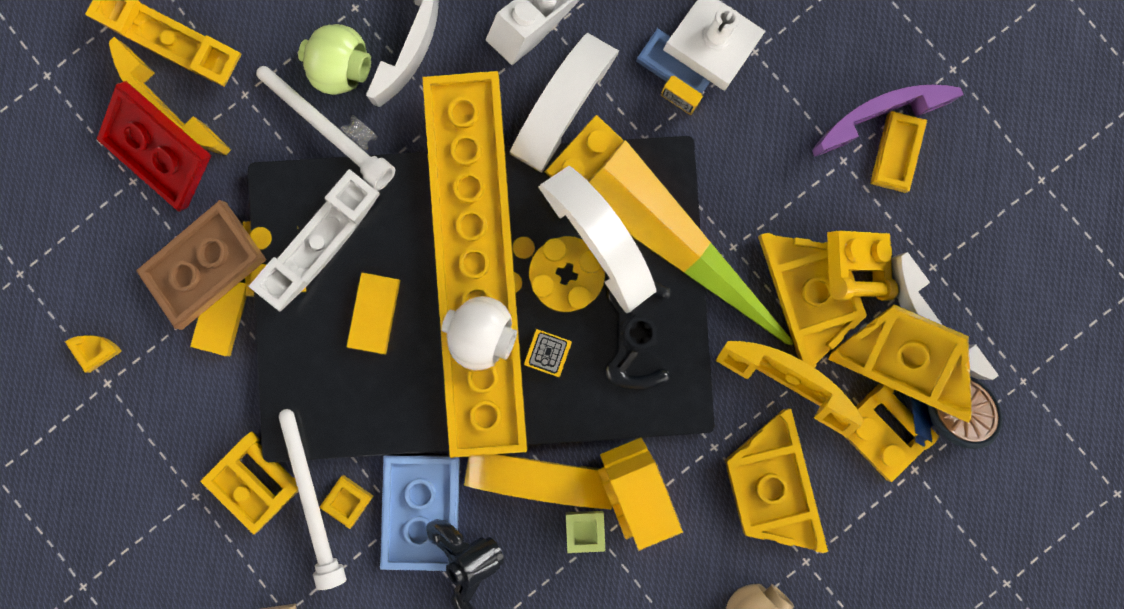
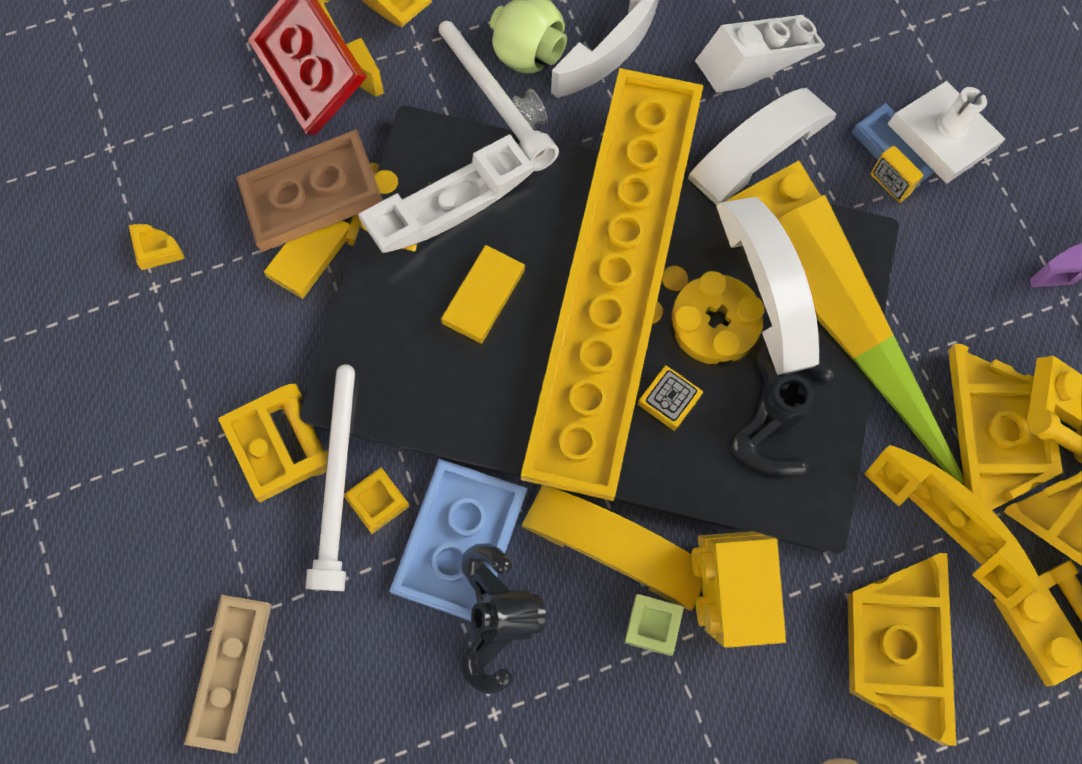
camera: 20 degrees right, 15 degrees down
(479, 333) = (603, 339): white plant -> none

